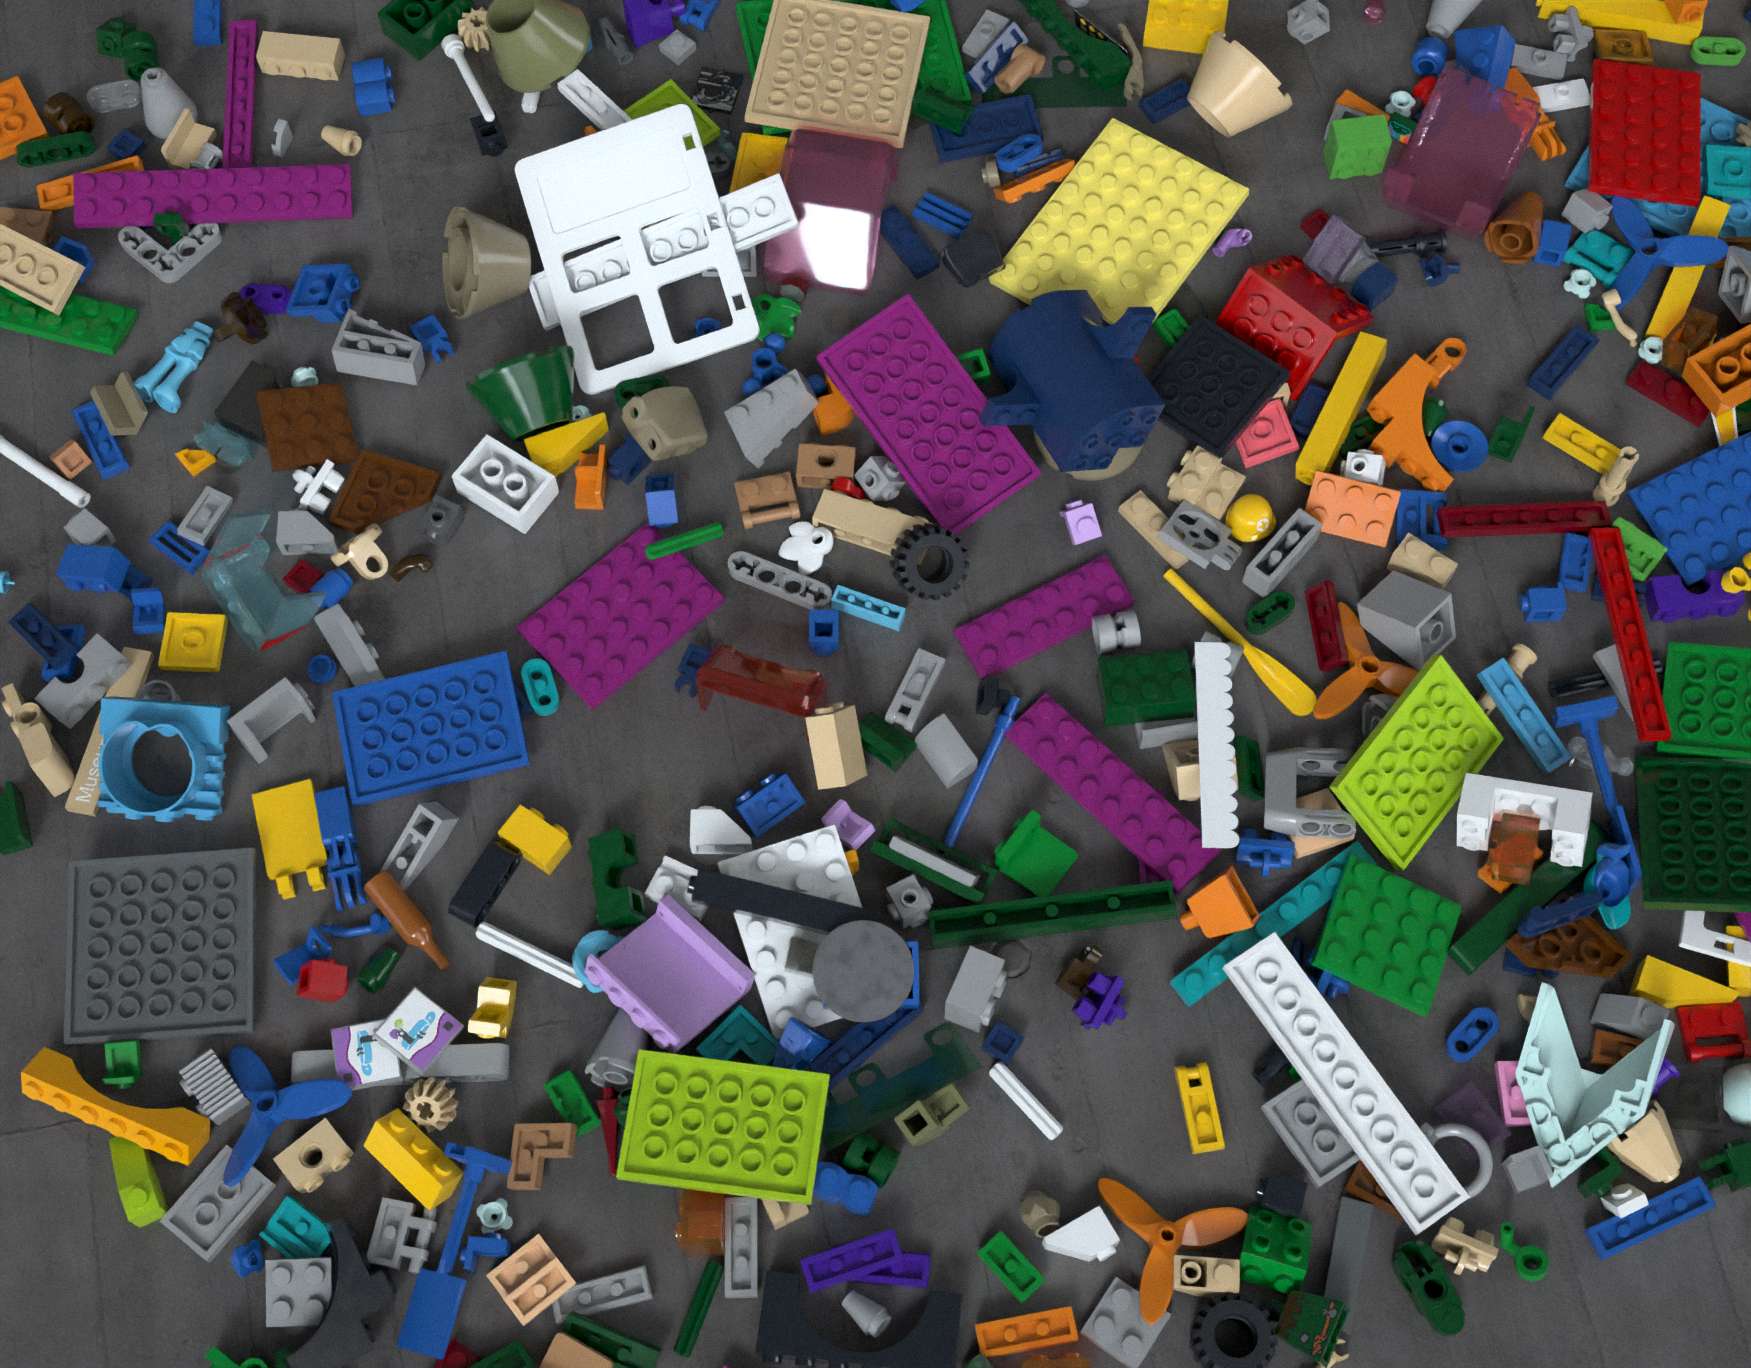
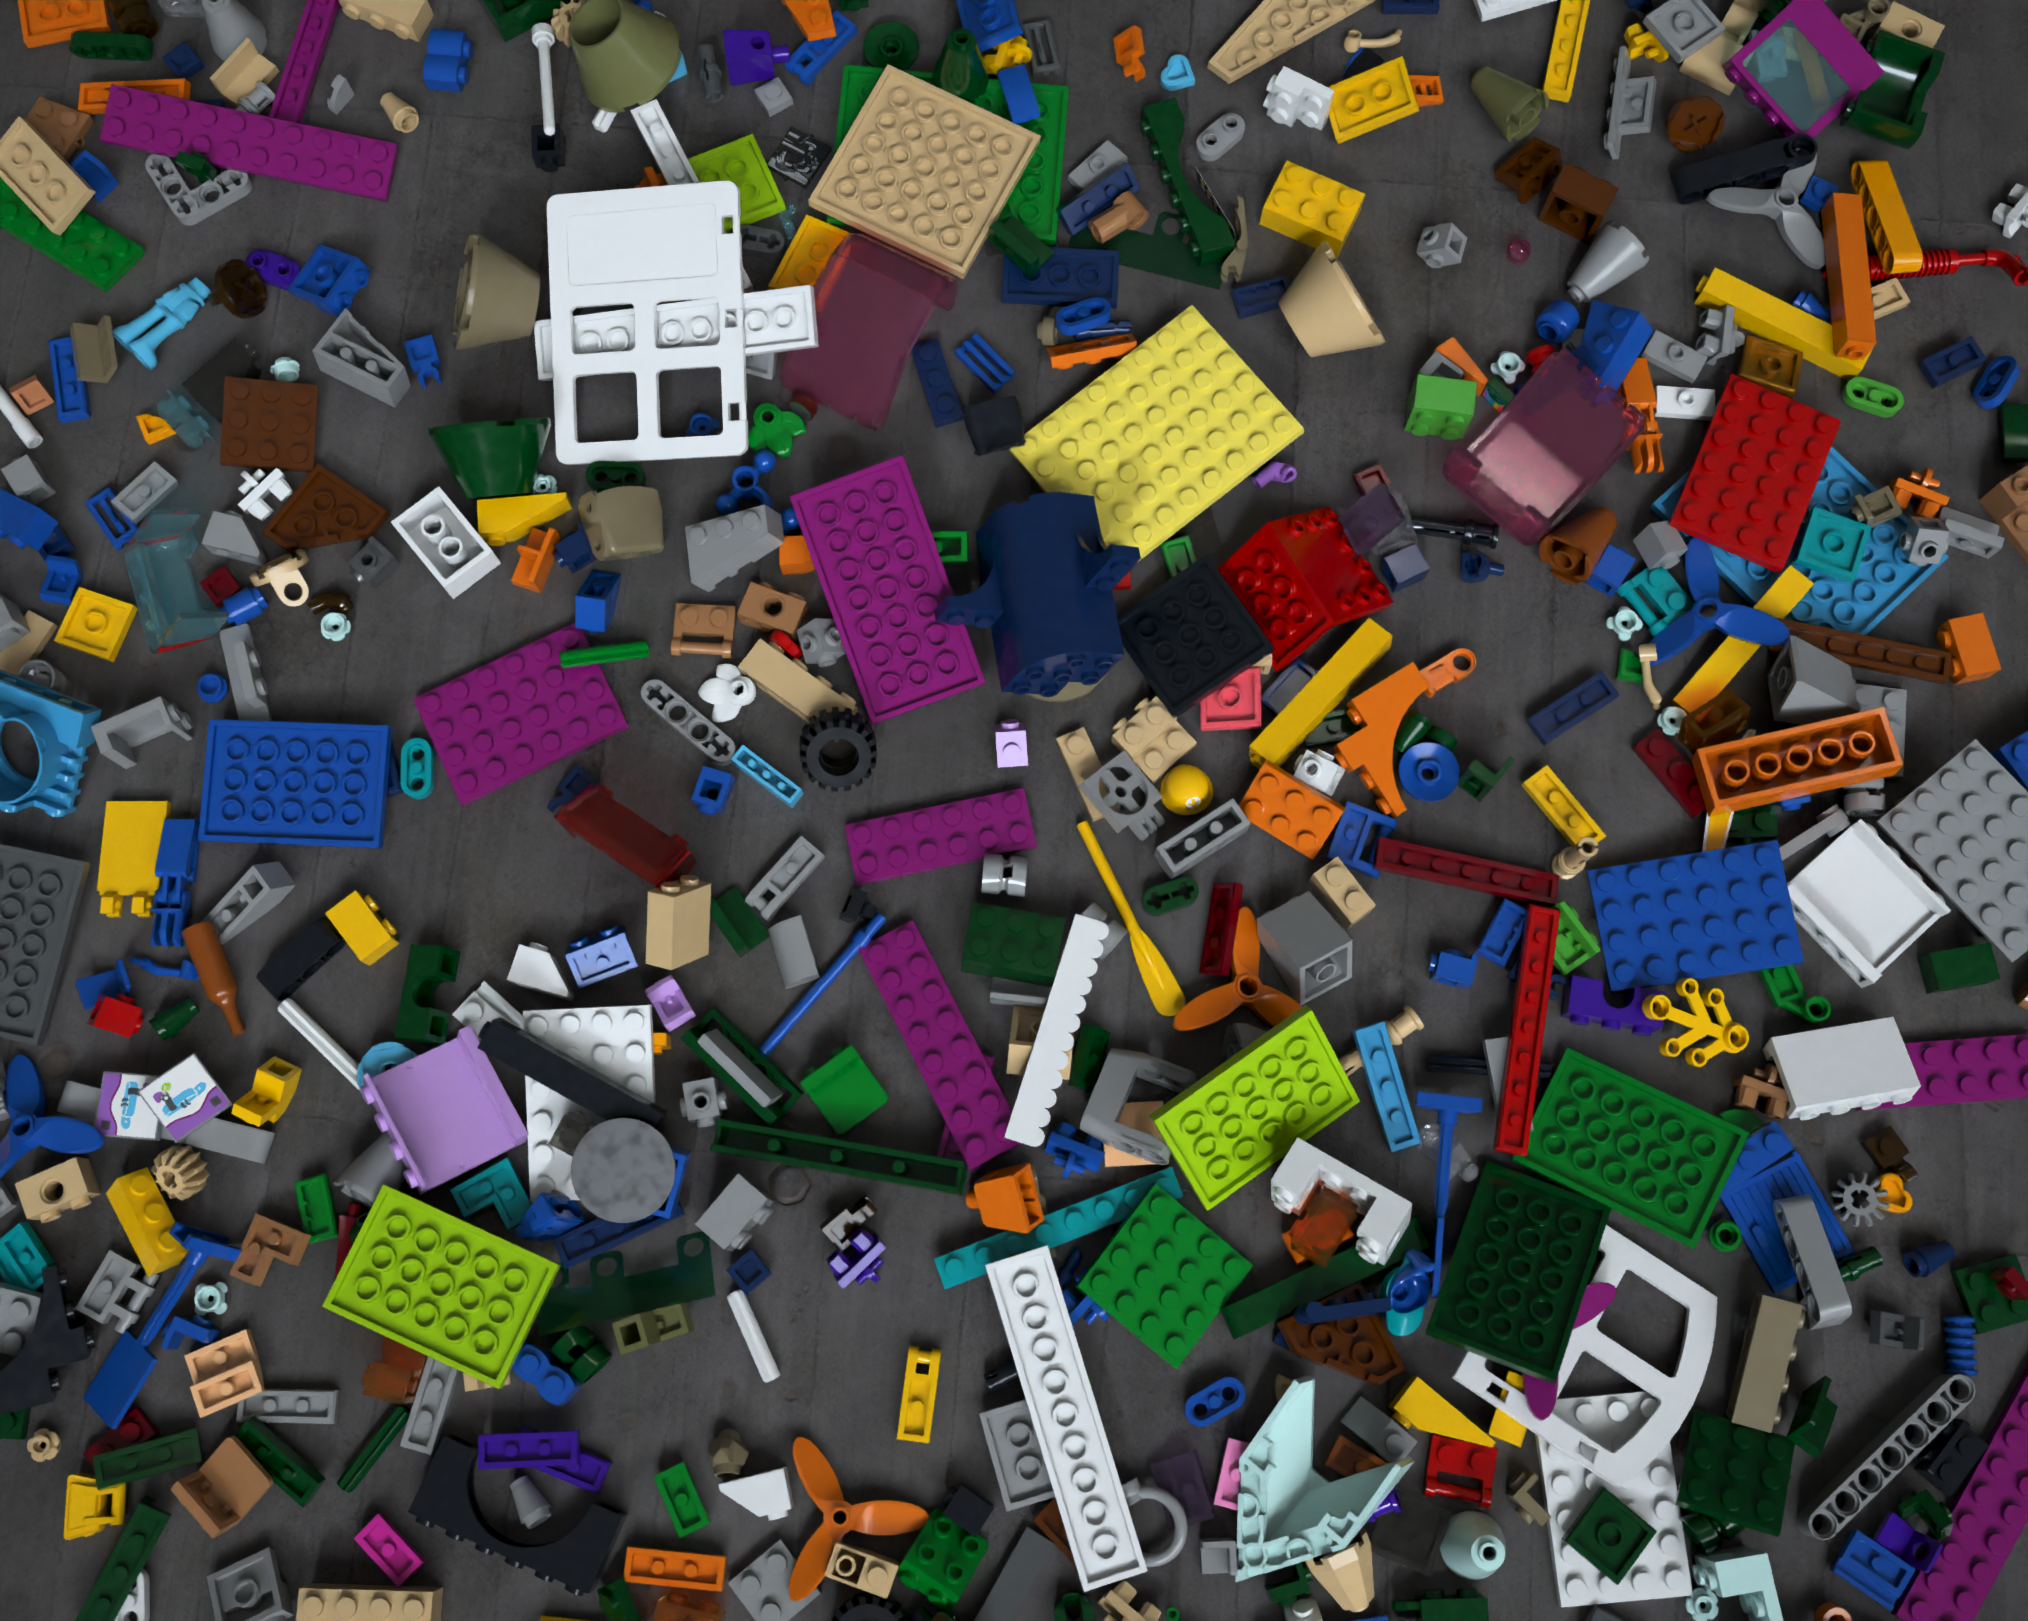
camera: 15 degrees right, 10 degrees up
(418, 579) = (330, 621): none -> light aqua plate
(1459, 413) = (1441, 737): none -> dark green tile

